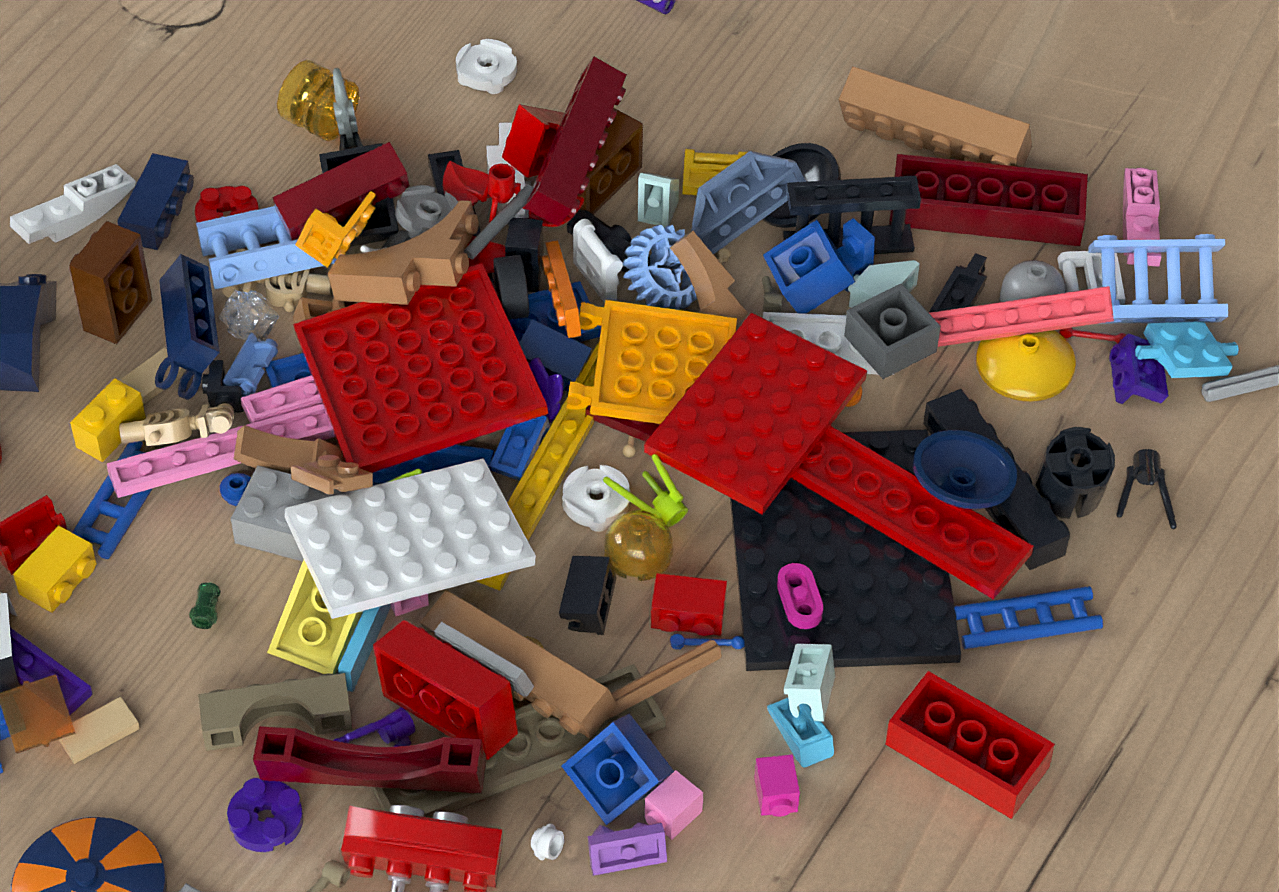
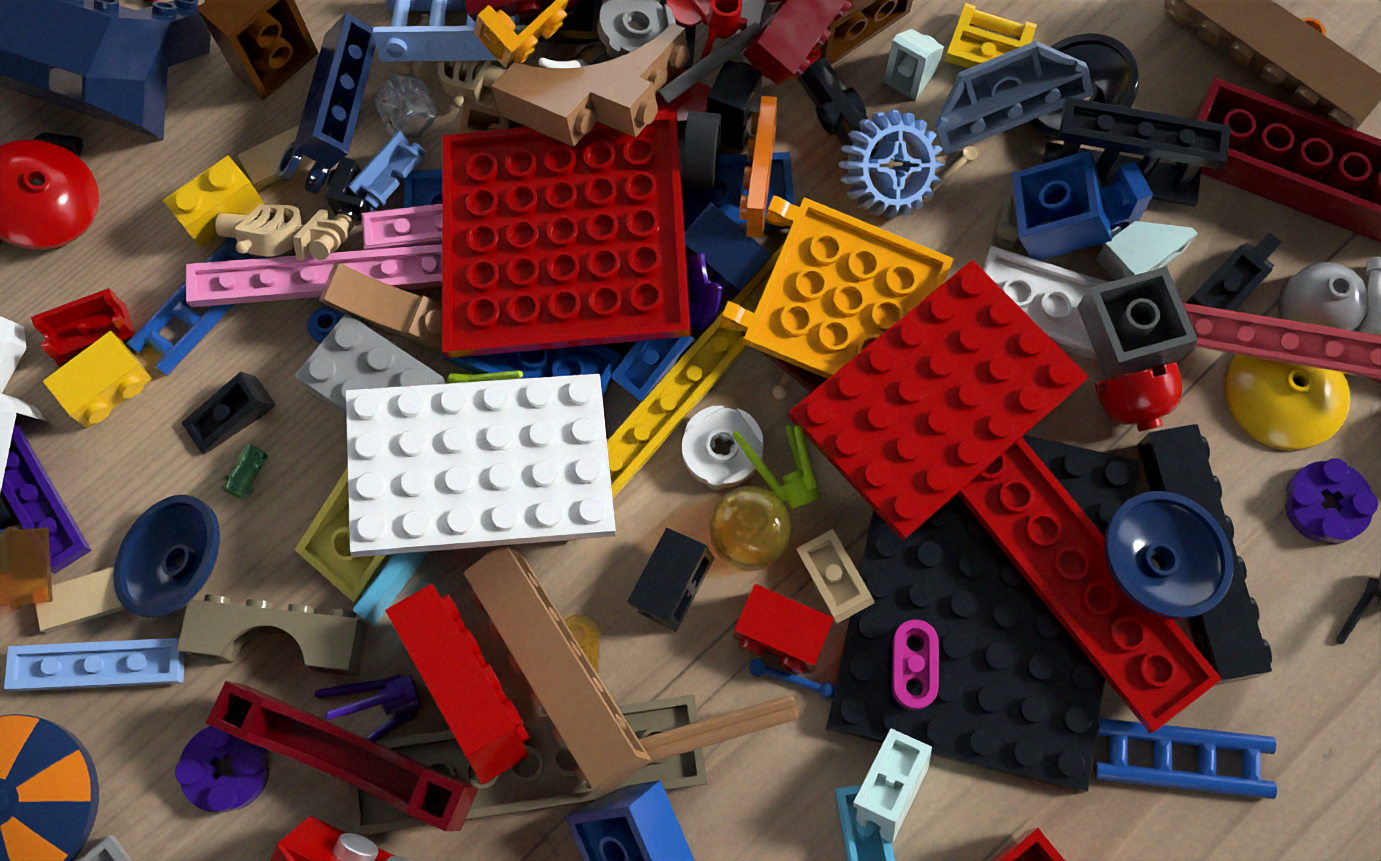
camera: 20 degrees right, 20 degrees up
(129, 769) = (94, 665): none -> light blue plate
(167, 670) = (166, 556): none -> dark blue dish
(173, 570) = (228, 412): none -> black slope
(332, 474) = (414, 359): medium nougat plate -> none
(516, 676) = (508, 665): light grey tile -> none
(595, 260) = (814, 132): white plate -> none
(708, 278) = (936, 199): medium nougat slope -> none
(717, 558) = (835, 576): none -> tan plate
(912, 379) = (1142, 396): none -> red cylinder
(1075, 472) = (1306, 567): black cylinder -> none
(1085, 409) = (1349, 490): none -> dark purple plate

